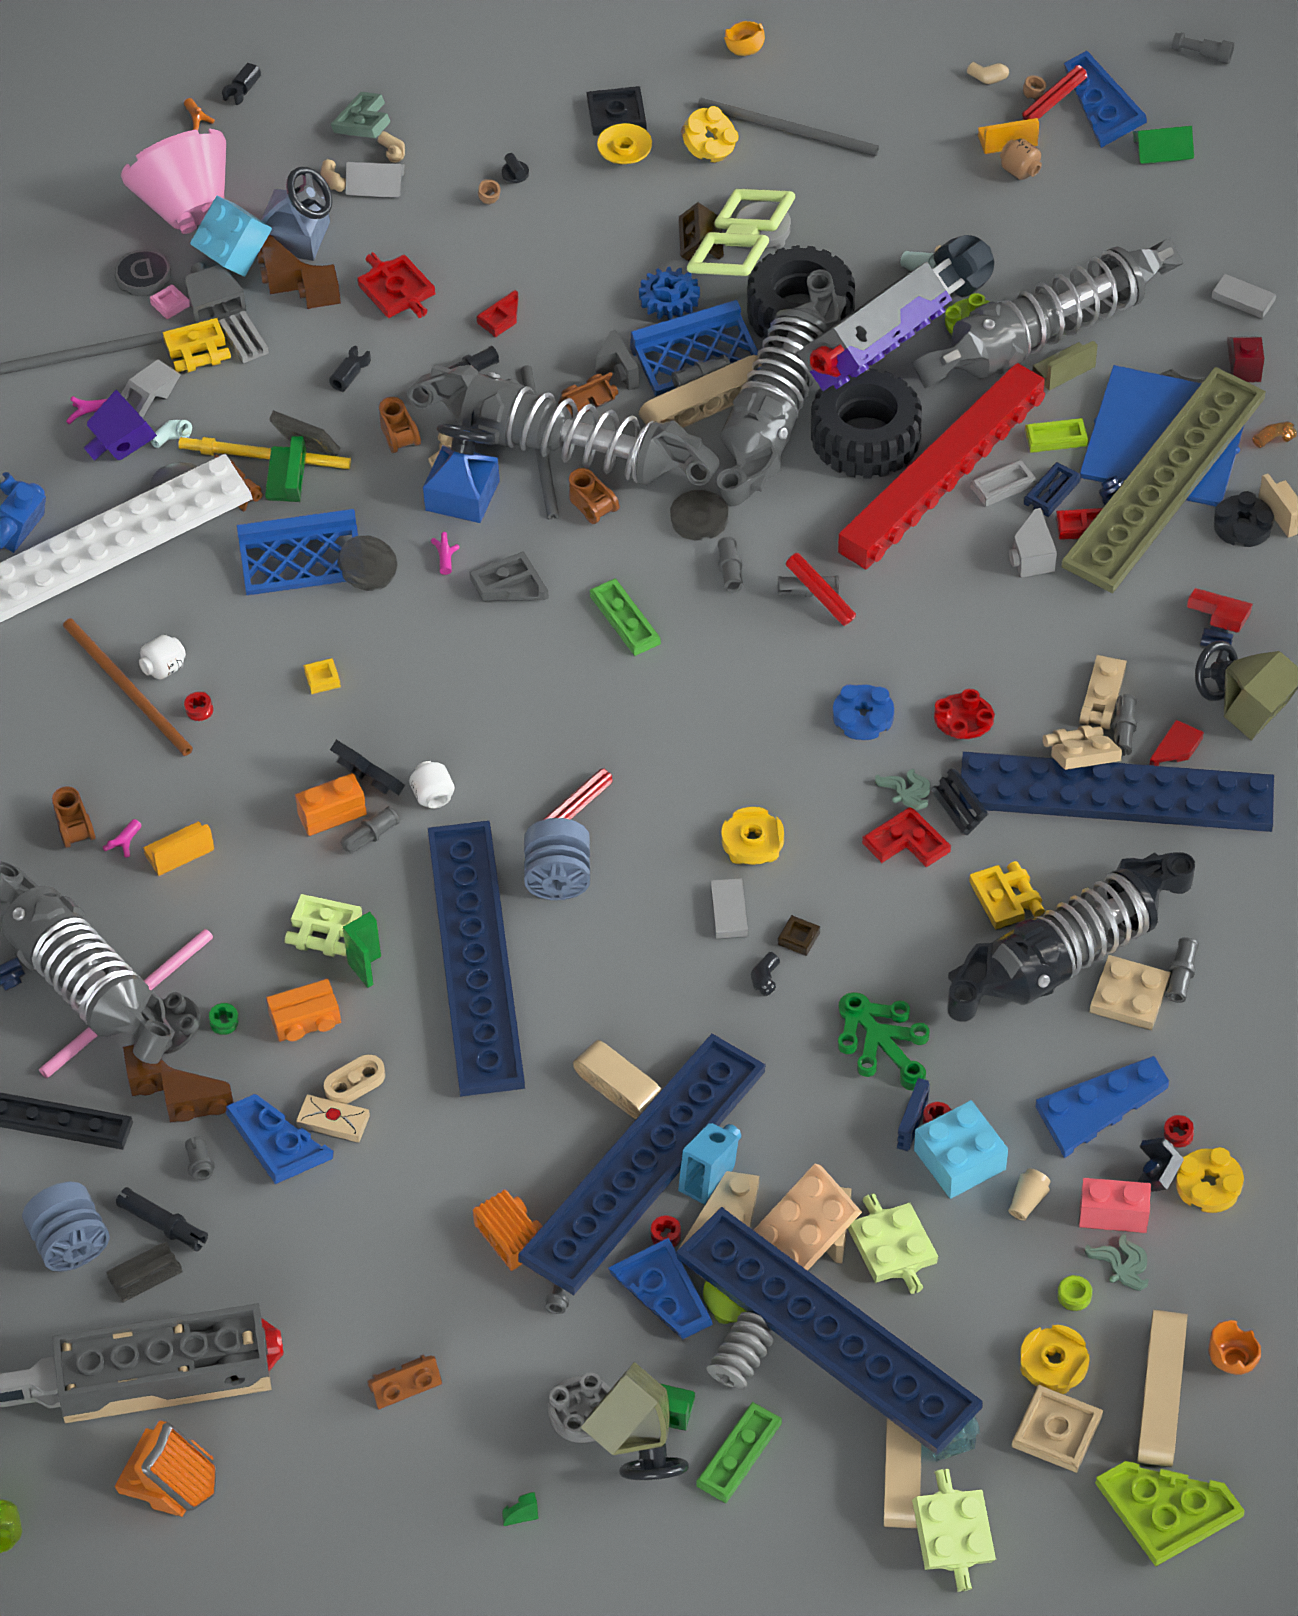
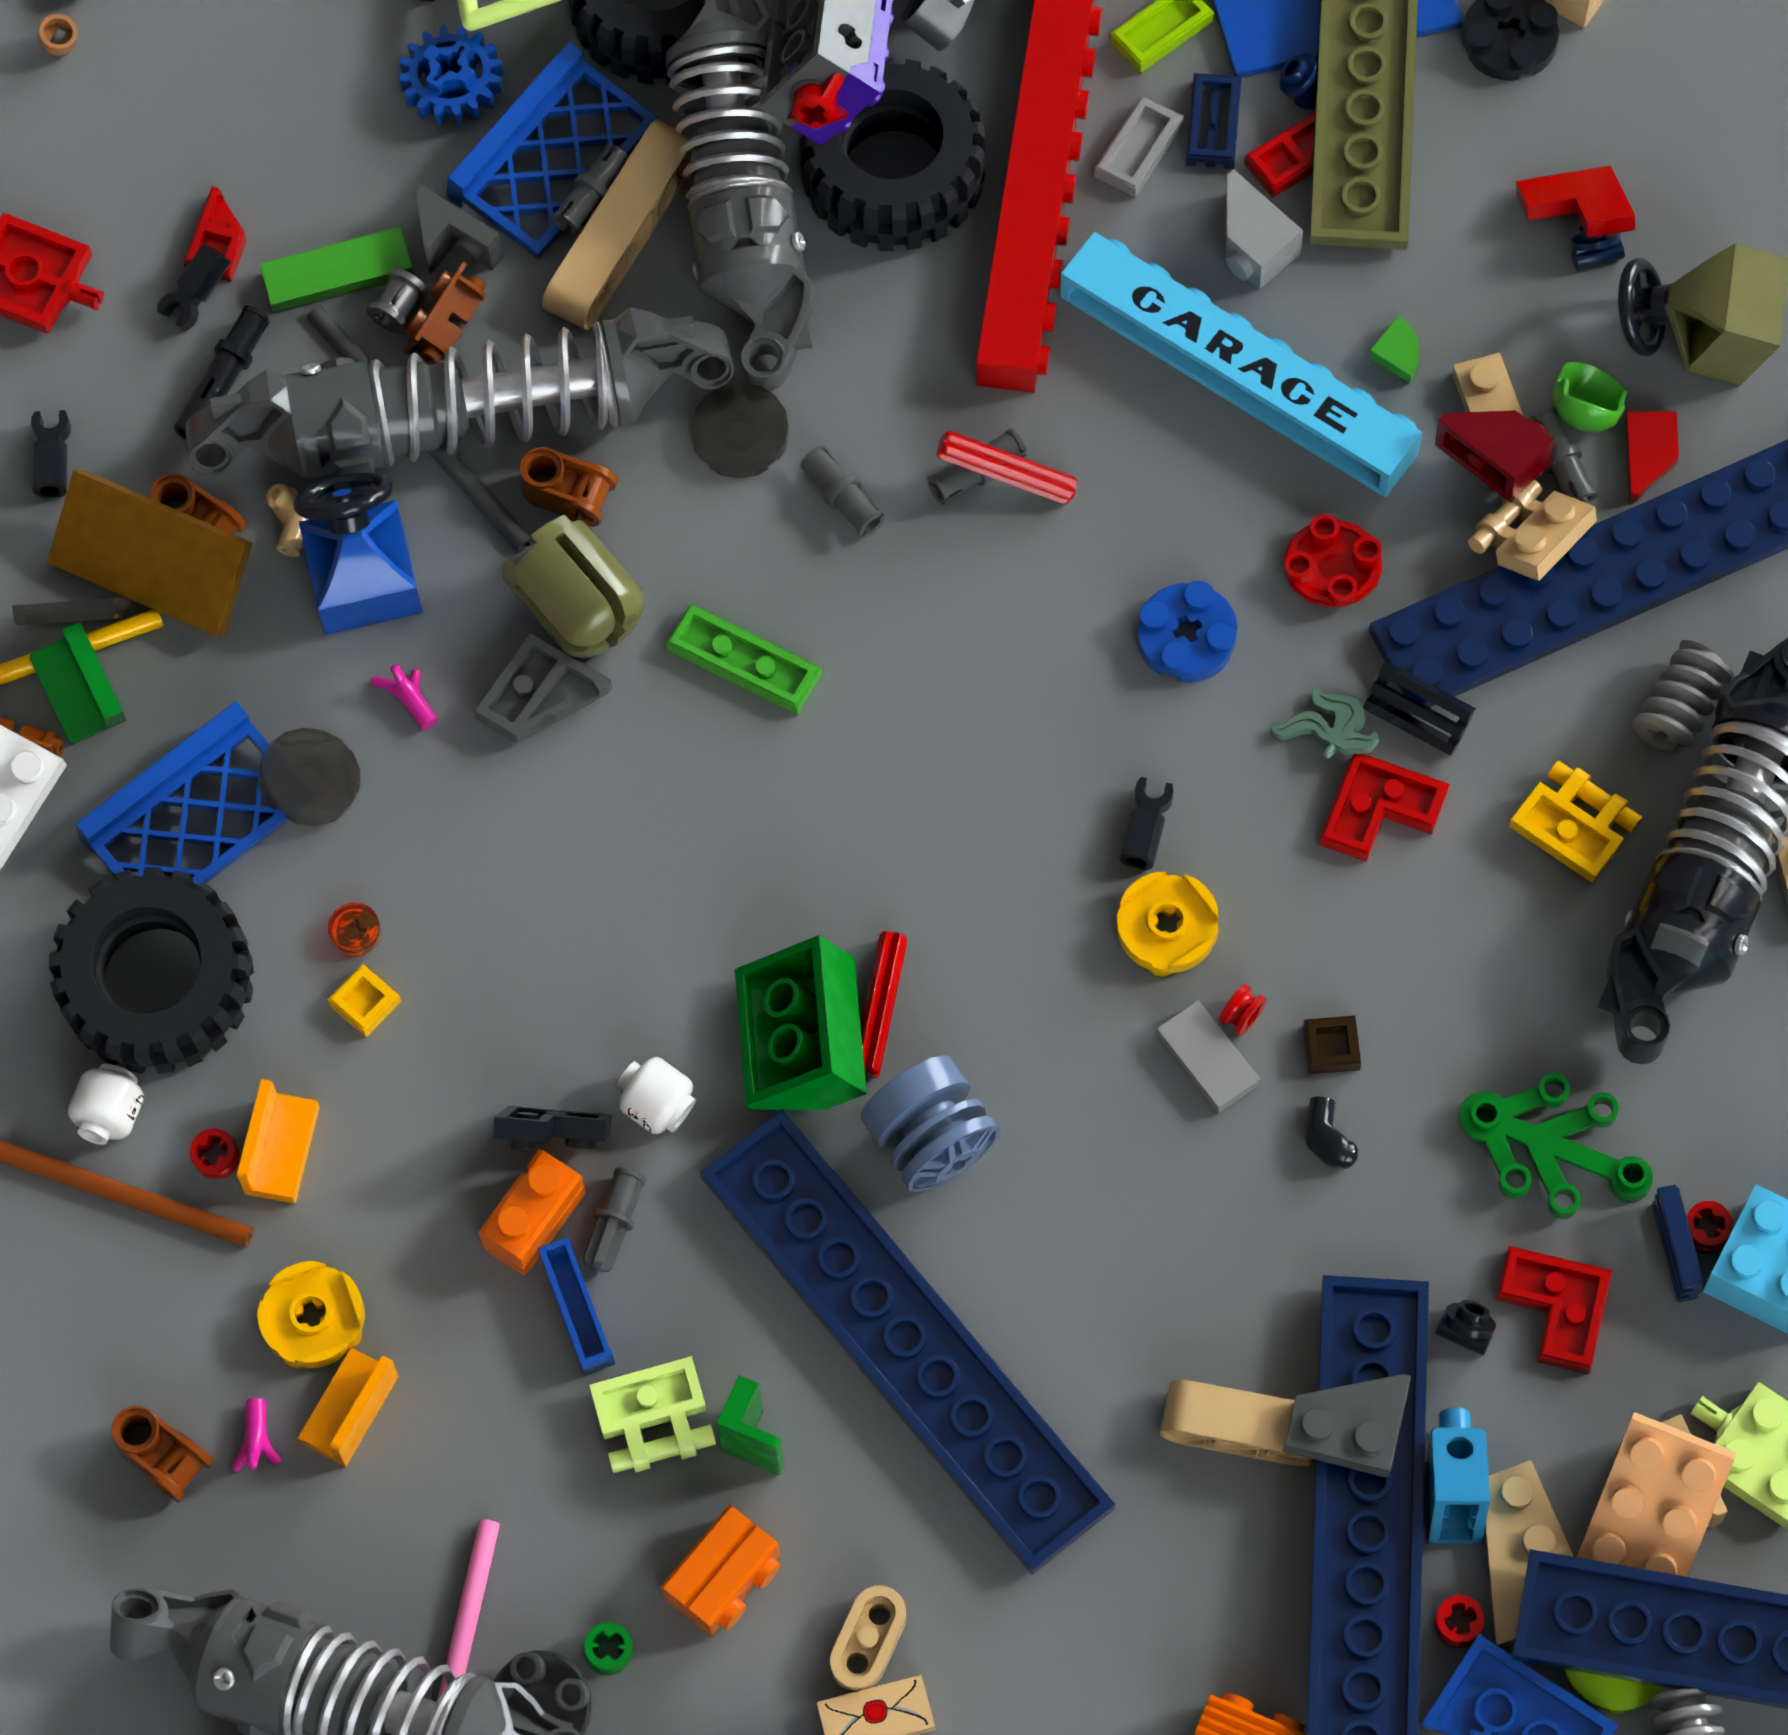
camera: 30 degrees left, 15 degrees up
(184, 812) = (284, 1302): none -> yellow plate
(213, 575) = (136, 907): none -> black tyre
(229, 713) = (277, 1144): none -> light orange panel
(322, 858) = (576, 1306): none -> blue piece
(340, 642) = (354, 929): none -> clear red tile
(361, 427) = (149, 552): none -> pearl gold tile
(473, 327) = (195, 285): none -> black bar
(526, 786) = (800, 1028): none -> green slope
(550, 353) = (335, 269): none -> bright green tile
(559, 538) = (576, 588): none -> olive cylinder
(571, 376) = (397, 300): none -> flat silver bush
(671, 1102) = (1350, 1424): none -> dark grey wing
(761, 893) = (1242, 1009): none -> red bush
(772, 1098) = (1467, 1325): none -> black plate
(775, 787) = (1145, 827): none -> black bar
(837, 1113) = (1570, 1294): none -> red tile
(982, 602) = (1241, 363): none -> medium azure brick
(1072, 636) = (1398, 350): none -> bright green tile
(1087, 696) = (1496, 448): none -> dark red slope
(1101, 860) = (1682, 698): none -> light grey piece
(1157, 700) = (1587, 397): none -> bright green hair

